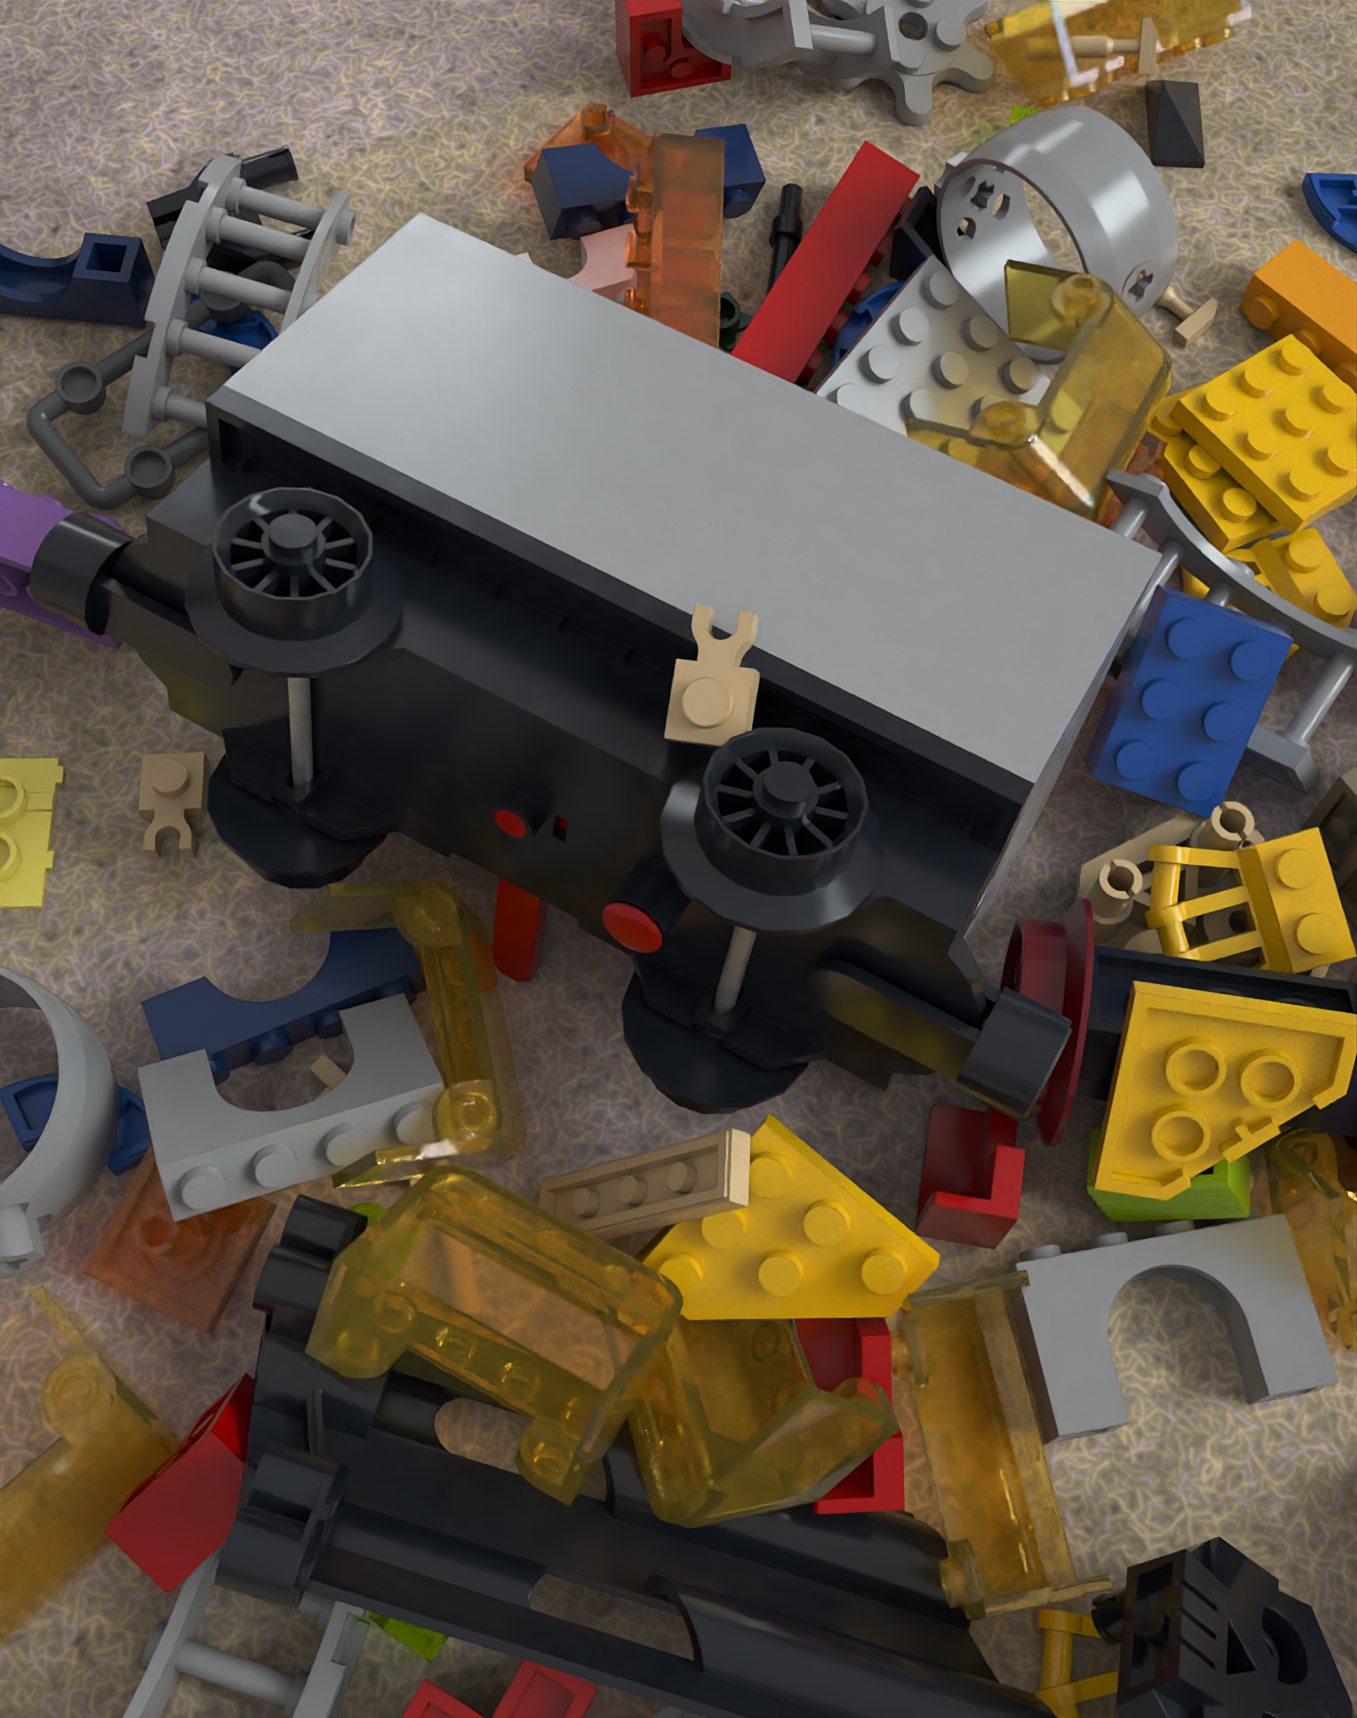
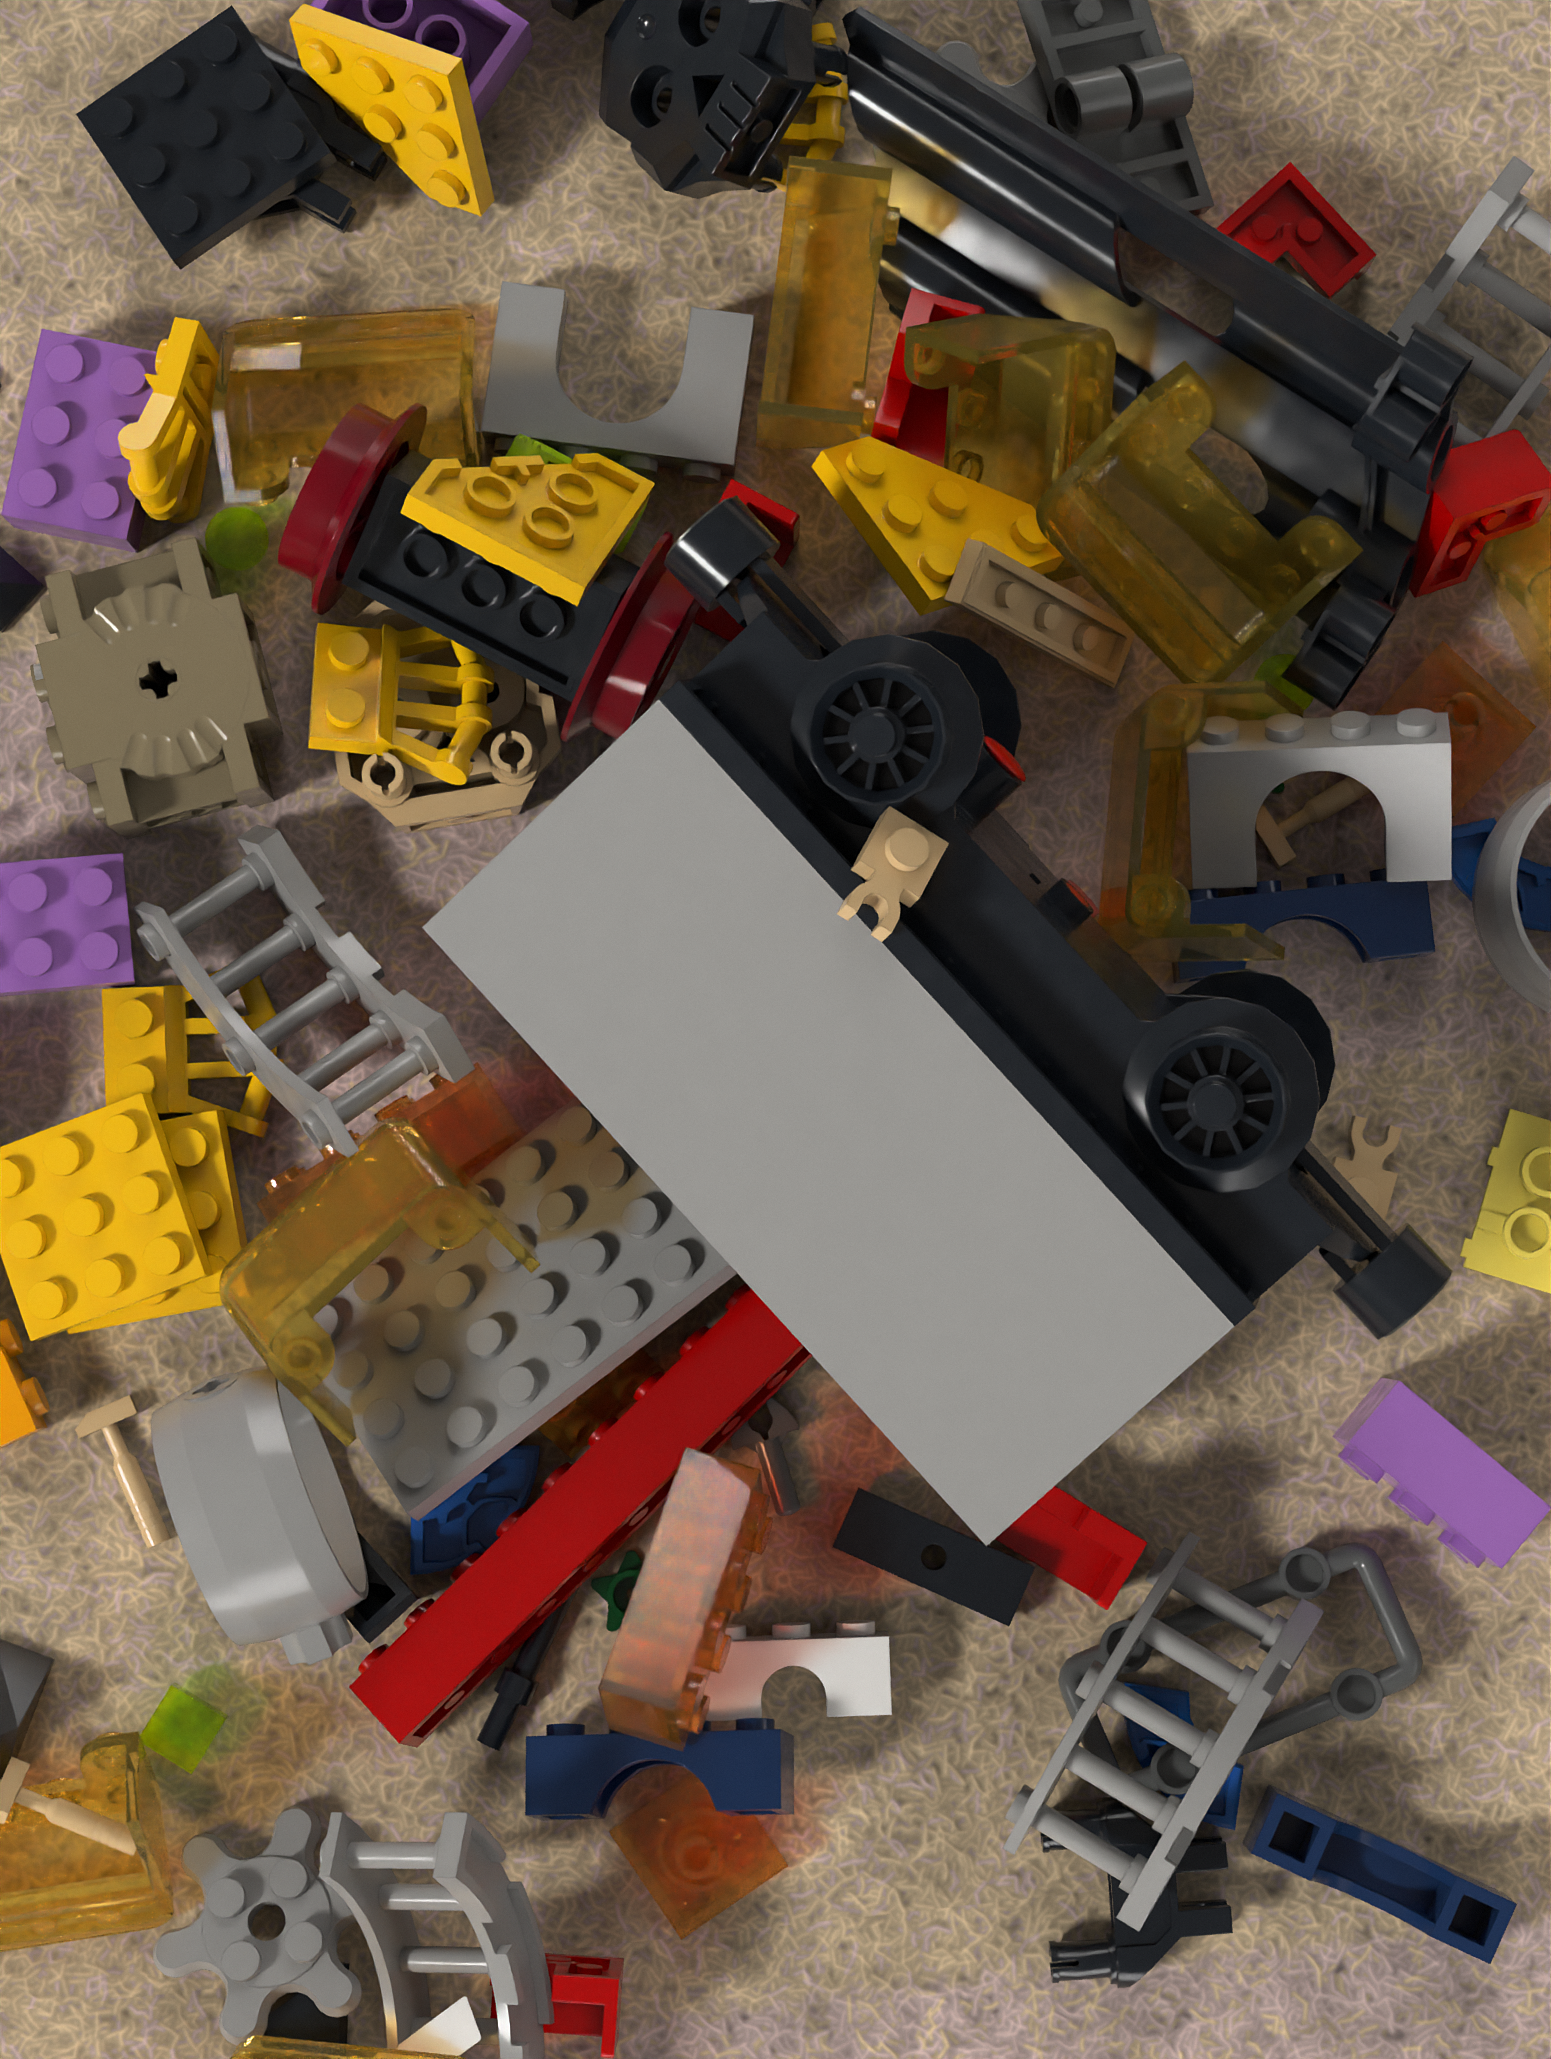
camera: 160 degrees left, 20 degrees up
(1186, 701) = (357, 916): blue brick -> none

